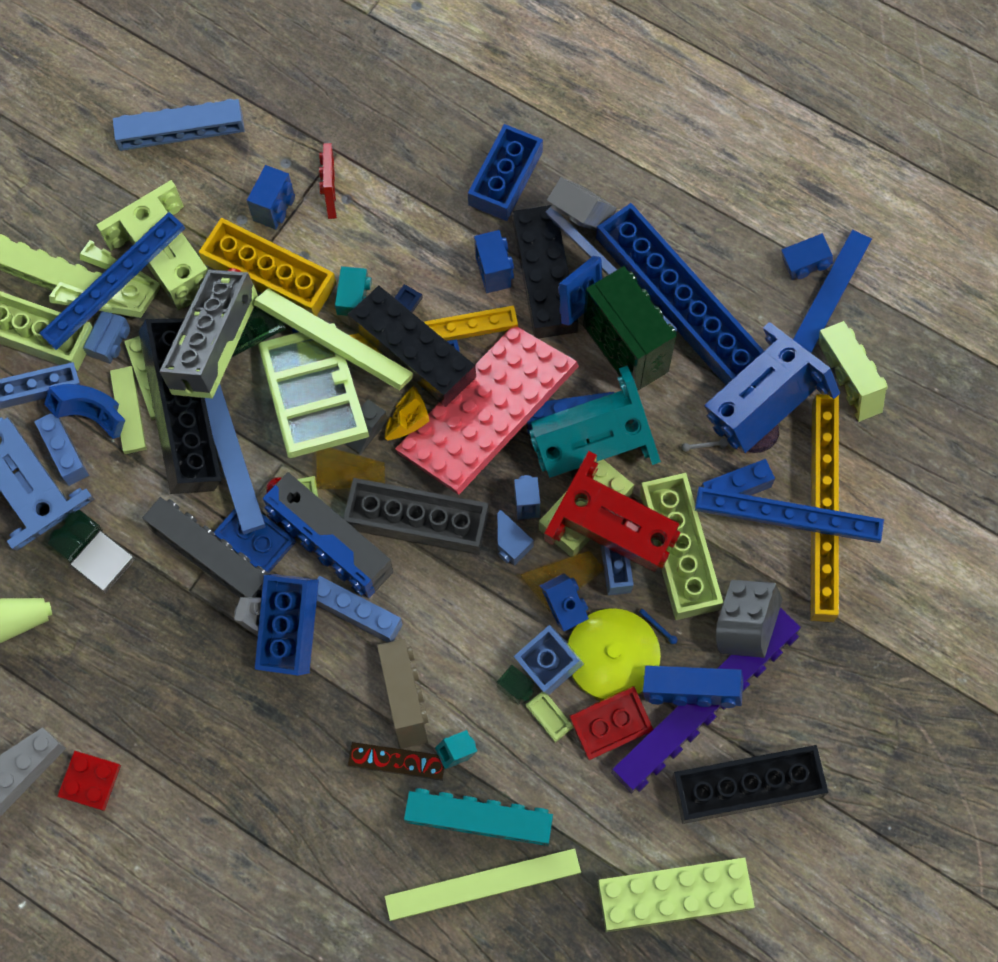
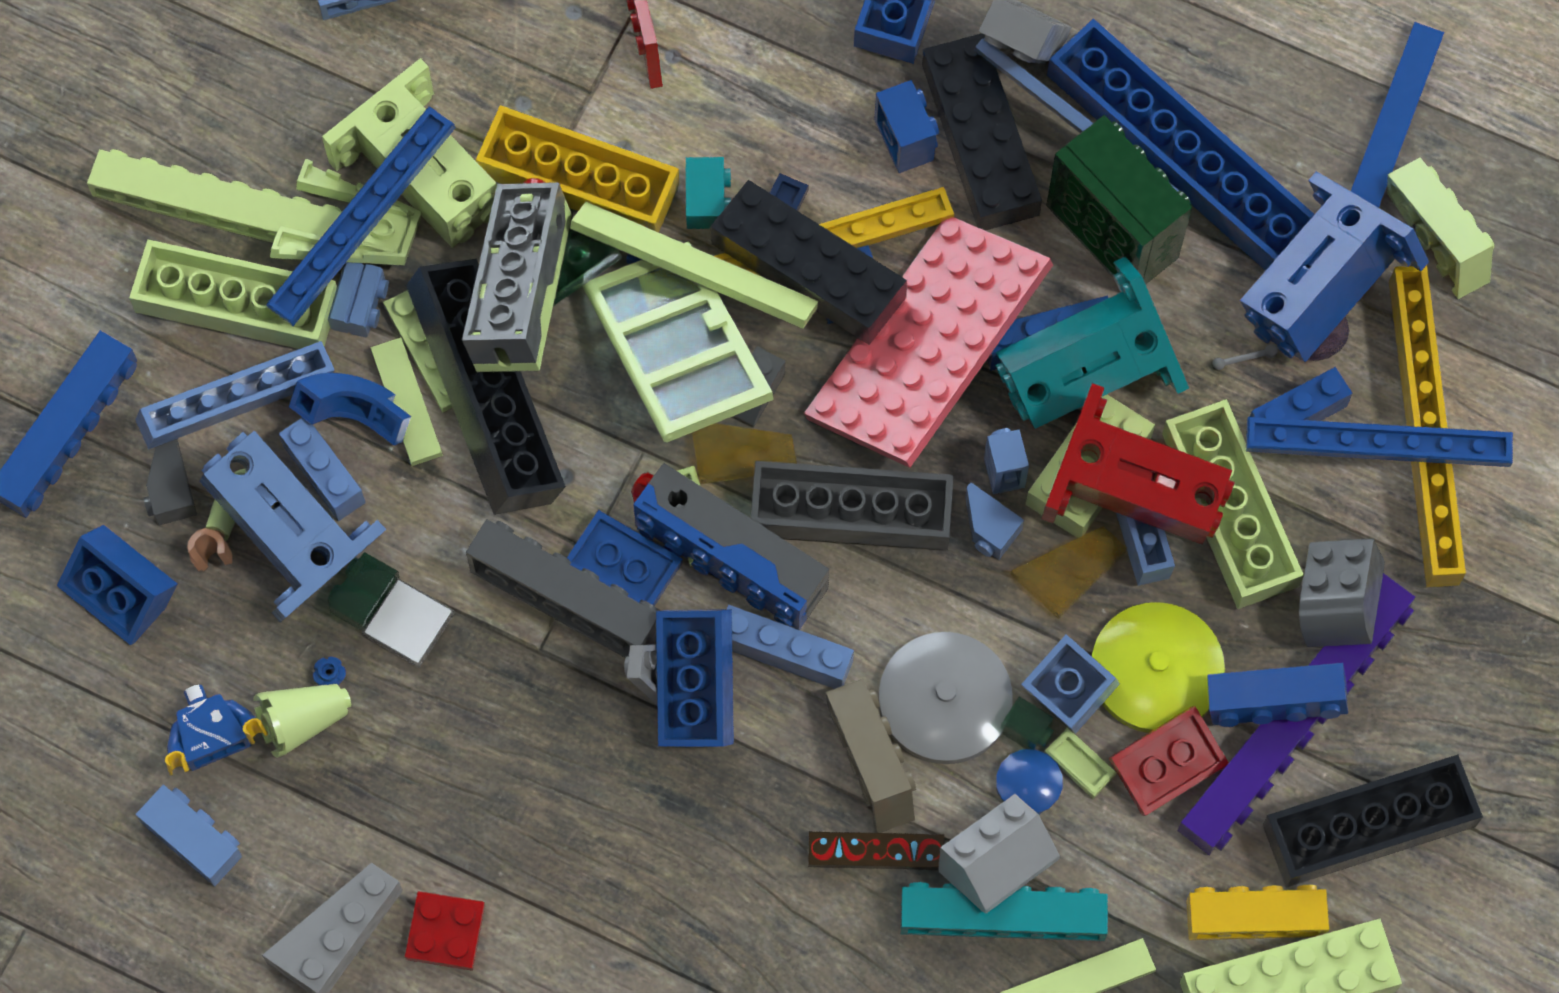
camera: 10 degrees left, 0 degrees up
(46, 593) = (332, 663): none -> blue plate
(234, 464) = (579, 466): medium blue tile -> none
(271, 197) = (566, 67): blue brick -> none
(408, 416) = (815, 365): yellow brick -> none
(456, 749) = (955, 819): teal brick -> none
(461, 658) = (945, 697): none -> light grey dish
(479, 776) = (998, 854): none -> light grey slope
(511, 725) = (1031, 777): none -> blue dish
(564, 601) = (1080, 600): blue brick -> none
(573, 289) = (1036, 154): blue plate -> none
(659, 841) = (1257, 913): none -> yellow brick
(671, 638) = (1237, 636): blue hinge -> none
(807, 257) = (1356, 69): blue brick -> none

